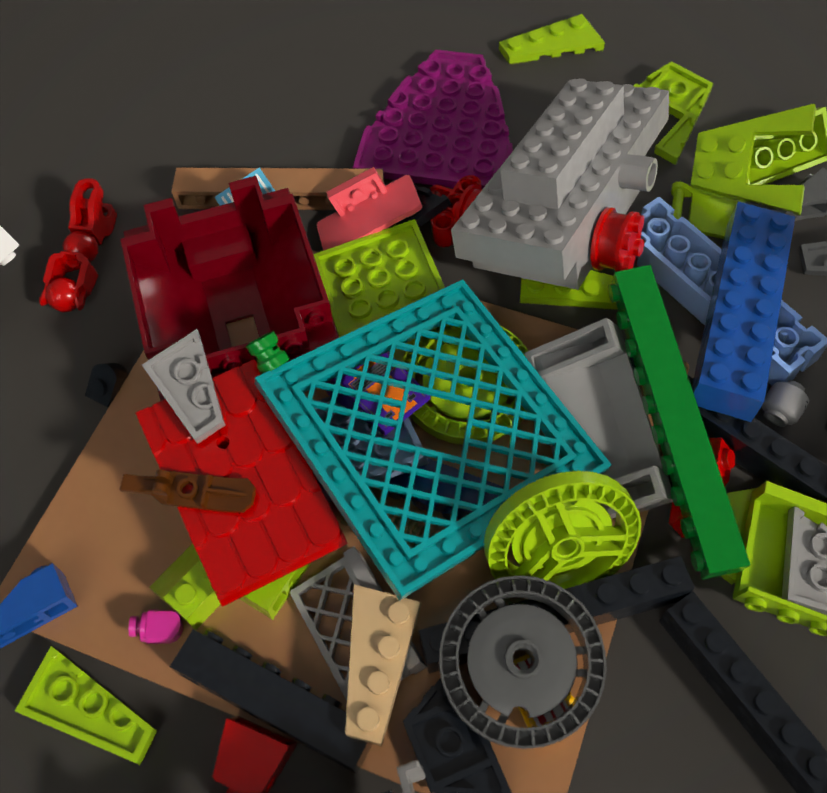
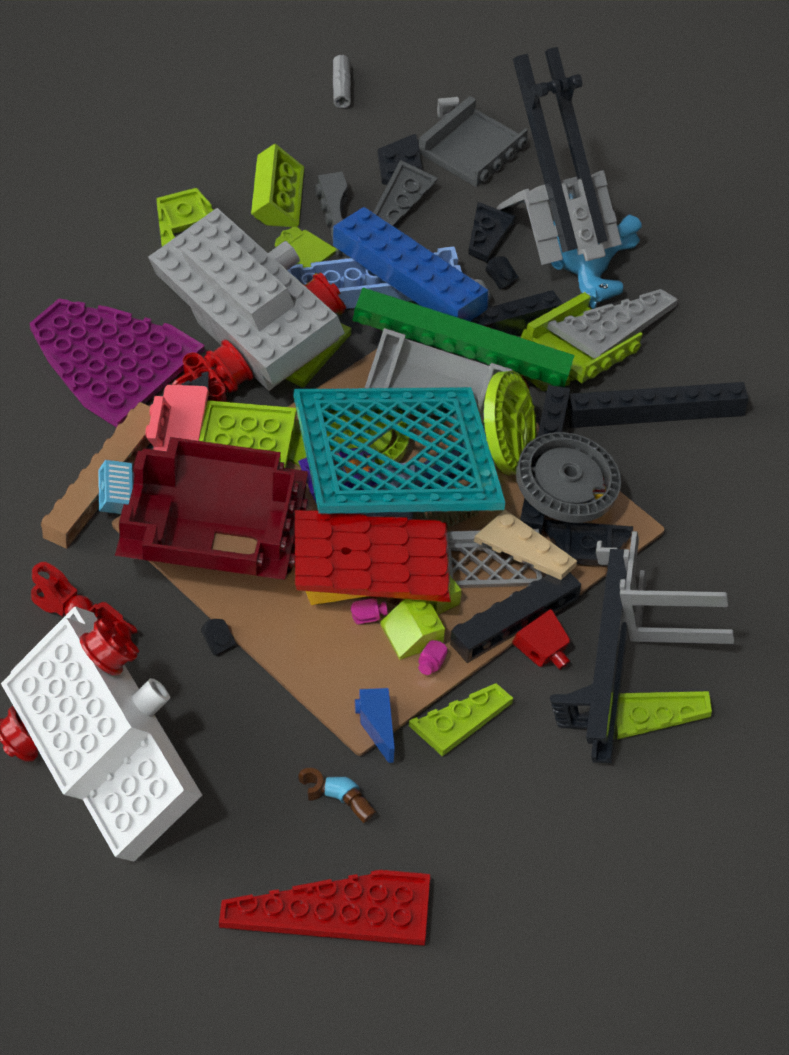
camera: 70 degrees left, 10 degrees down
(187, 385) = (297, 545): light grey wing -> none
(208, 492) = (379, 568): reddish brown piece -> none
(267, 352) = (300, 494): green wheel -> none
(551, 40) = (70, 252): lime wing -> none
(726, 154) = (278, 218): lime wing -> none

